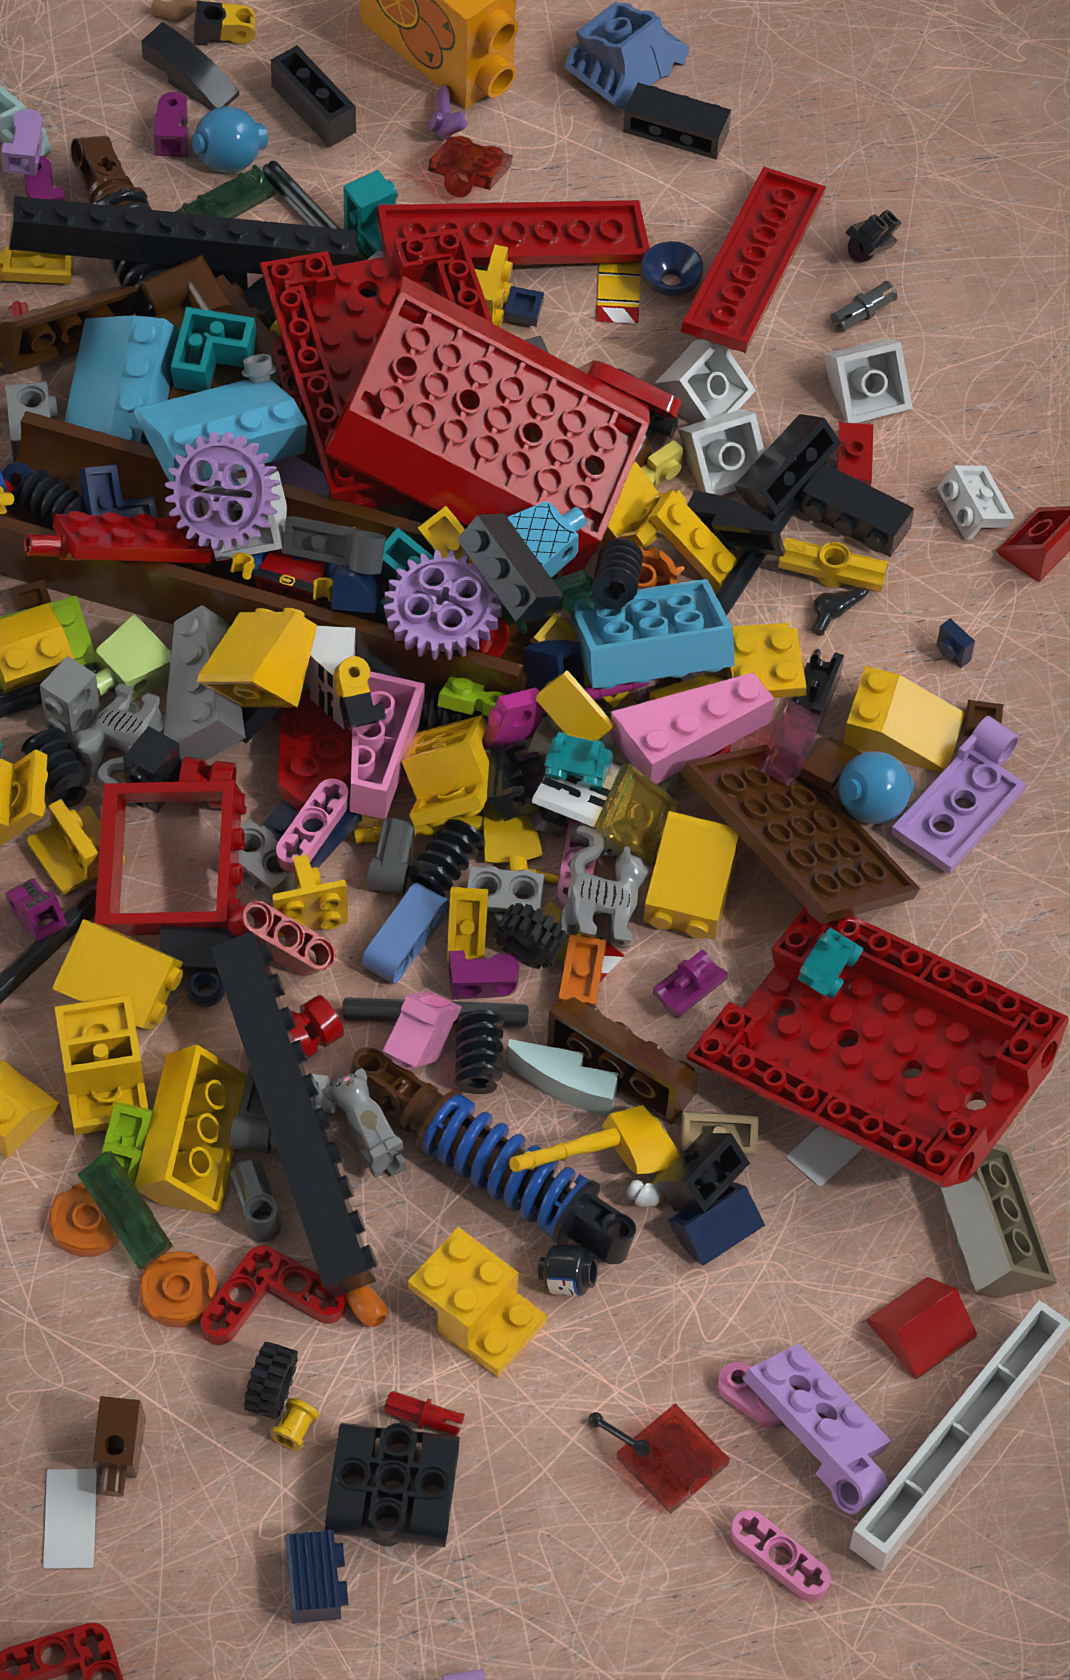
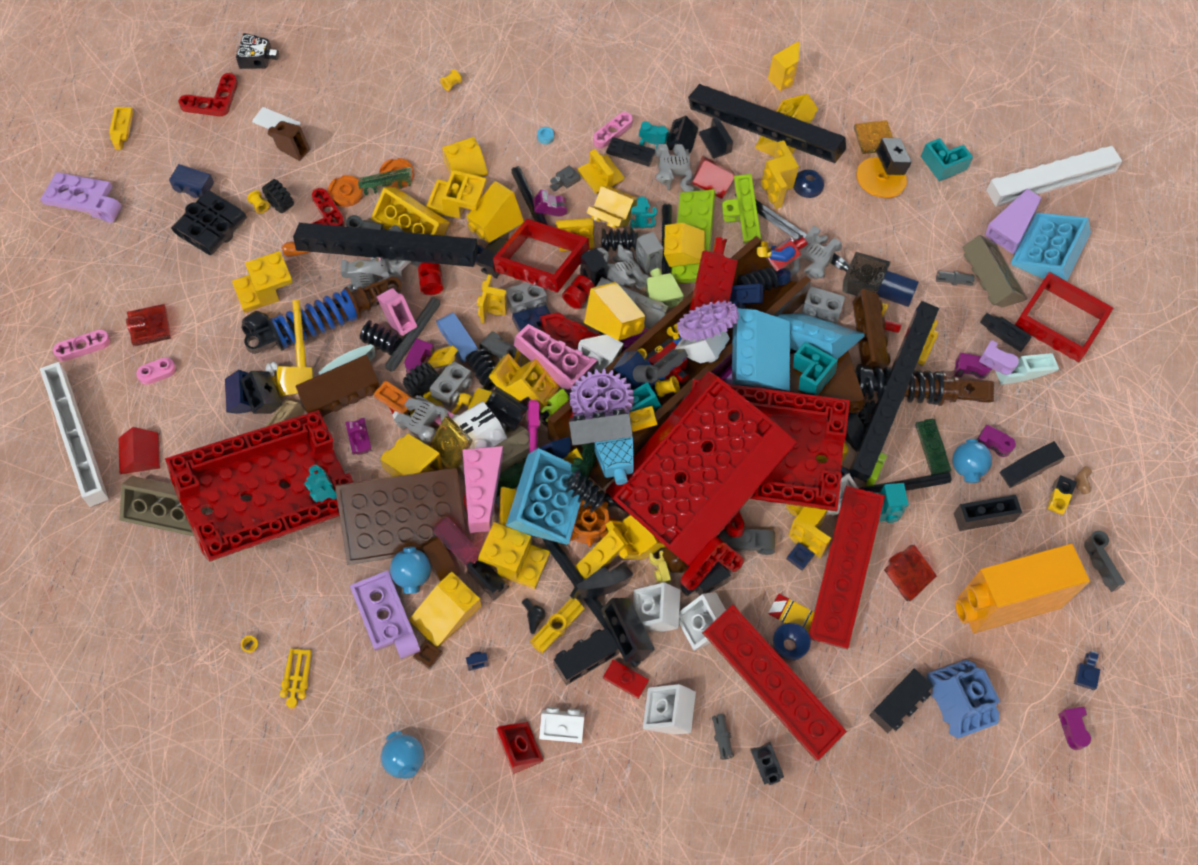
camera: 115 degrees right, 5 degrees up
(127, 1135) = (420, 193): lime slope -> none
(186, 283) = (861, 381): reddish brown brick -> none
(258, 368) = (790, 383): light grey plate -> none
(297, 937) = (469, 285): red beam -> none
(314, 809) = (524, 306): bright pink beam -> none
(354, 694) = (569, 338): leg -> none
(423, 1413) = (231, 247): red axle -> none
(442, 120) = (947, 574): medium lavender piece -> none
(573, 708) = (517, 435): yellow slope -> none
(578, 759) = (480, 424): teal piece -> none
(640, 1447) = (156, 308): black hinge -> none
(841, 1441) = (104, 384): lavender hinge -> none

